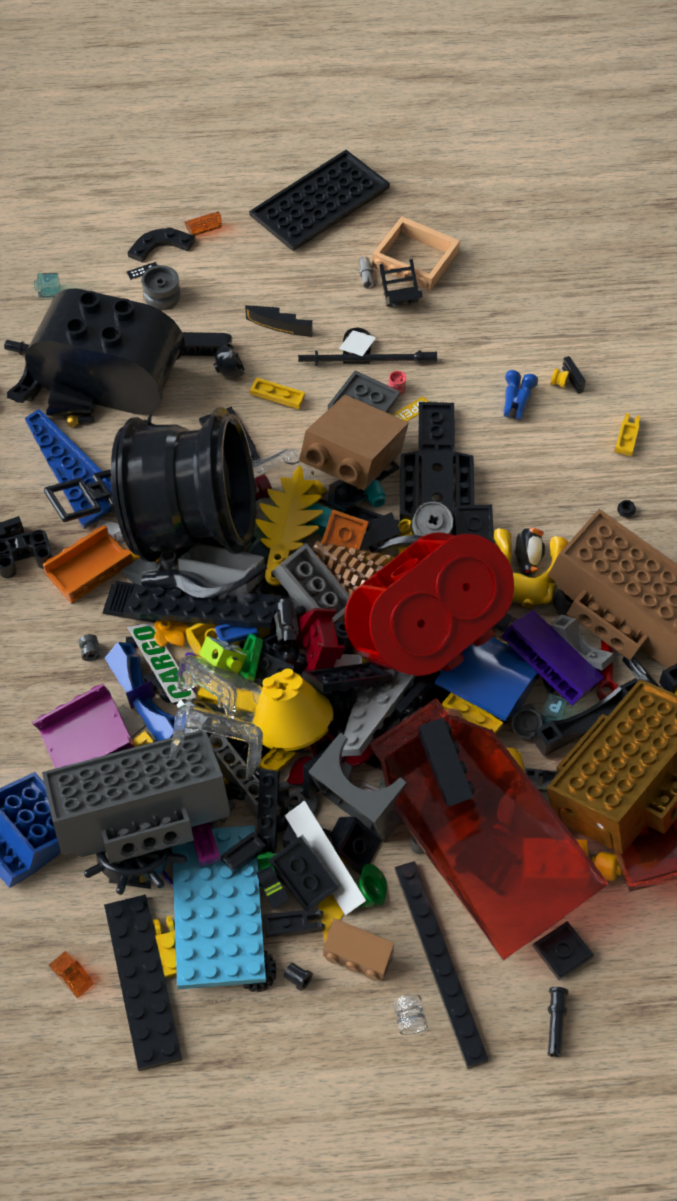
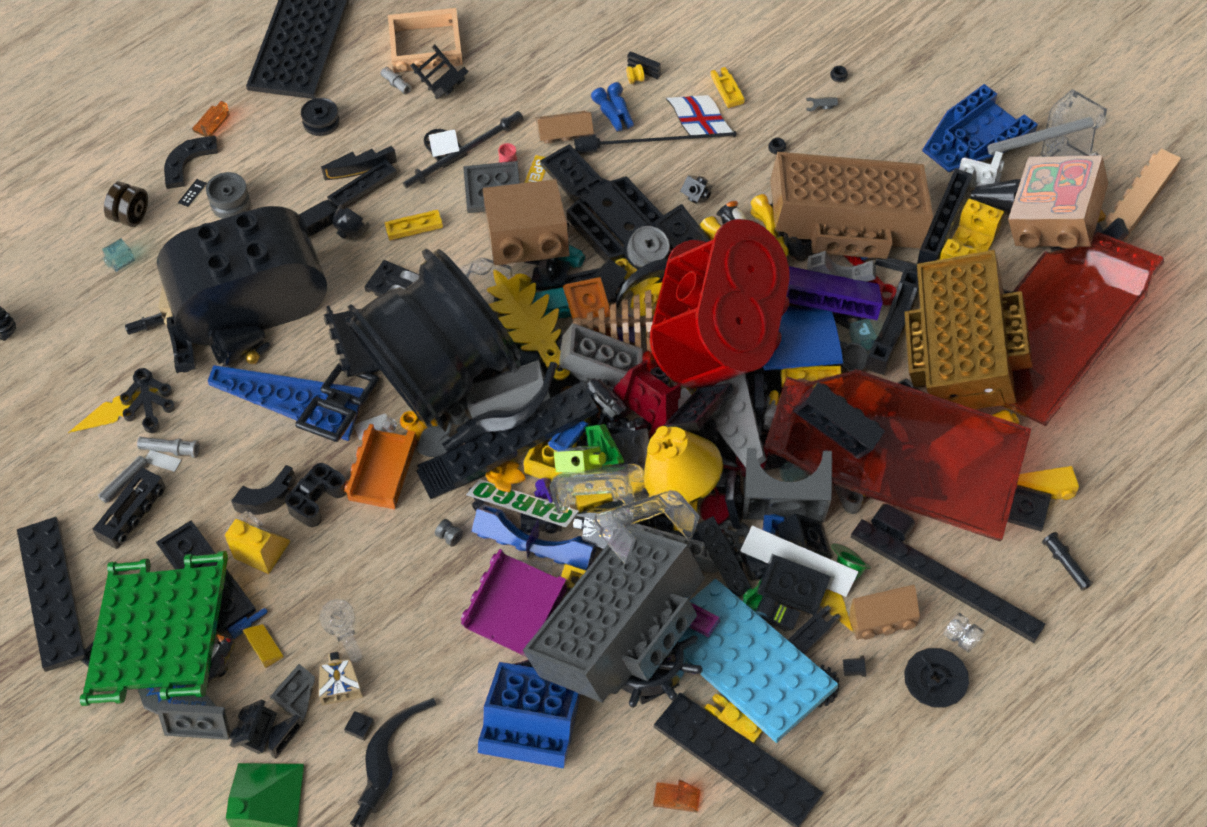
camera: 35 degrees left, 0 degrees up
(82, 249) = (126, 204): none -> dark brown wheel
(243, 852) = (731, 603): black tile -> none
(267, 339) = (363, 184): none -> black plate
(282, 266) = (320, 116): none -> black wheel
(331, 813) = (770, 523): none -> blue bracket
(346, 1021) = (943, 665): none -> black piece
(435, 884) = (893, 522): none -> black beam
(463, 386) = (564, 126): none -> medium nougat slope
(523, 501) = (696, 189): none -> brick
(581, 445) = (696, 114): none -> flag
(607, 948) = (1058, 481): none -> yellow slope

